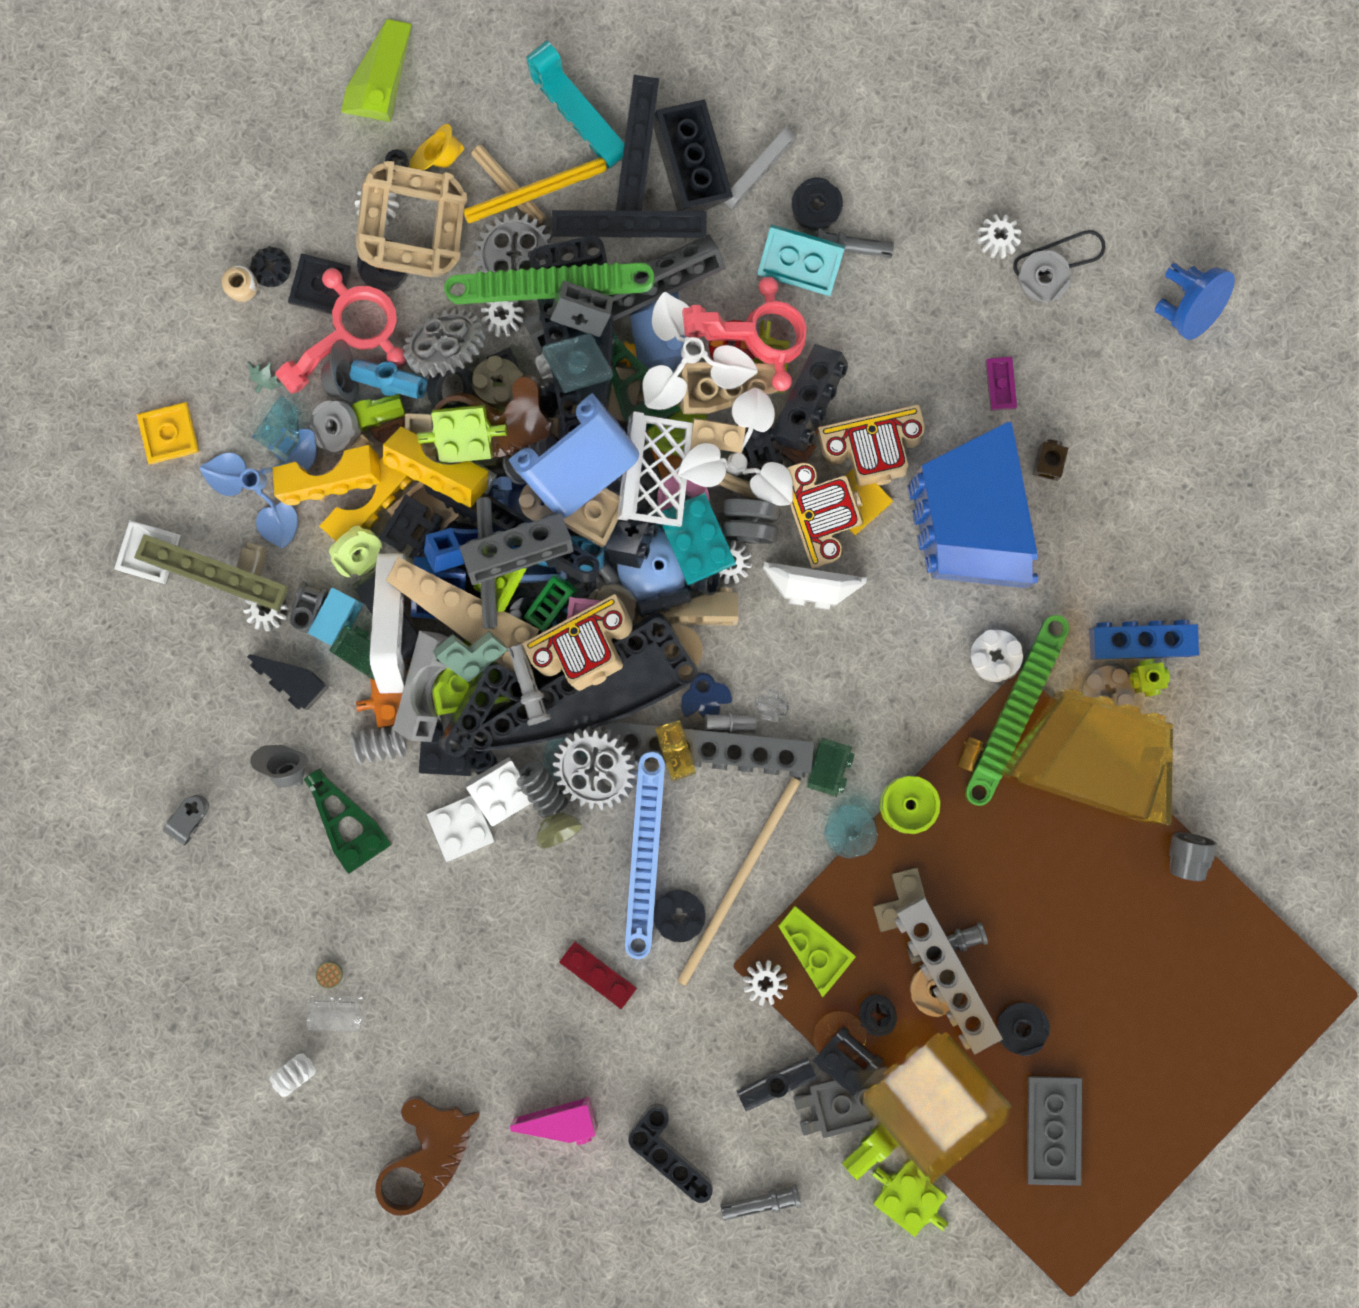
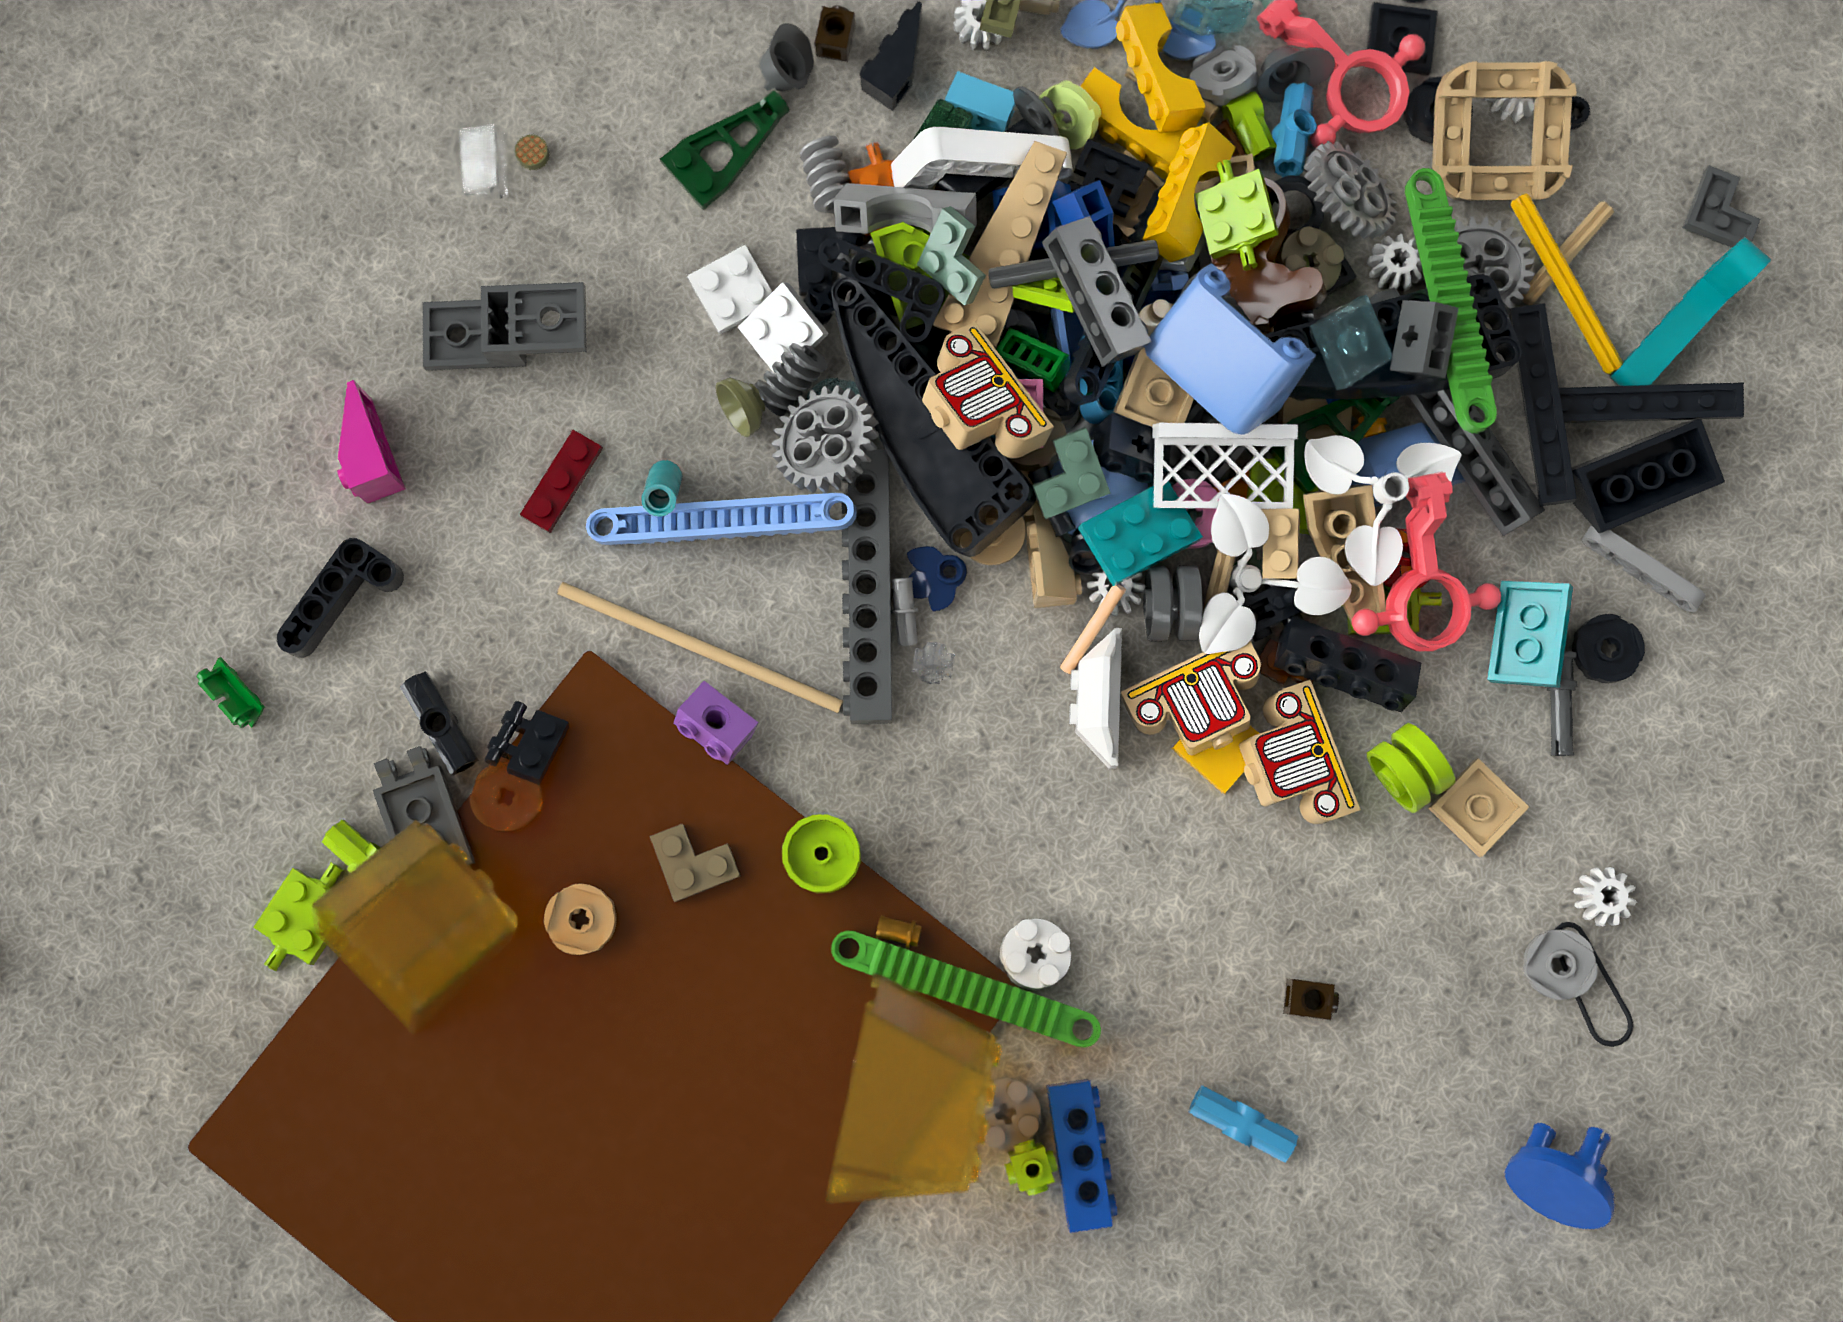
camera: 80 degrees right, 5 degrees down
(272, 729) = (835, 46): none -> dark brown brick
(292, 1074) = (401, 118): white gear -> none
(307, 605) = (991, 65): dark grey piece -> none
(353, 573) = (1036, 111): none -> dark grey dish
(376, 81) = (1677, 78): lime wedge -> none
(438, 150) = (1596, 161): yellow piece -> none
(443, 1141) = (329, 312): reddish brown animal -> none
(474, 1007) = (504, 326): none -> dark grey bracket
(490, 71) = (1711, 210): none -> dark grey plate
(531, 696) = (906, 341): light grey pin -> none
(617, 896) = (662, 488): none -> teal pin
(654, 579) = (1081, 478): none -> sand green plate
(671, 928) = (631, 564): black plate -> none
(675, 751) = (859, 540): clear yellow slope -> none
(726, 1247) = (241, 704): none -> green hinge
(761, 583) = (1093, 628): none -> light nougat bar
(770, 989) = (579, 699): white gear -> none
(773, 1201) = (286, 735): dark grey pin -> none
(802, 860) = (711, 706): none -> medium lavender brick
(805, 1010) = (536, 748): none -> black plate
(816, 949) = (618, 754): lime wing -> none
(830, 767) = (860, 746): clear green brick -> none
(842, 1067) = (466, 802): black plate -> none
(856, 845) = (775, 765): clear light blue plate -> none
(880, 1005) = (551, 851): black gear -> none
(891, 363) = (1411, 767): none -> lime wheel
(924, 317) = (1478, 807): none -> tan plate
(959, 940) = (648, 943): dark grey pin -> none
(976, 513) = (1226, 893): blue windscreen -> none
(985, 1032) = (517, 971): light grey brick -> none
(1001, 383) = (1404, 921): magenta plate -> none
(1028, 1014) = (531, 1060): black plate -> none
(1054, 1130) = (405, 1099): dark grey plate -> none
(1134, 520) = (1243, 1123): none -> dark azure piece
(1191, 855) = (793, 1249): dark grey piece -> none

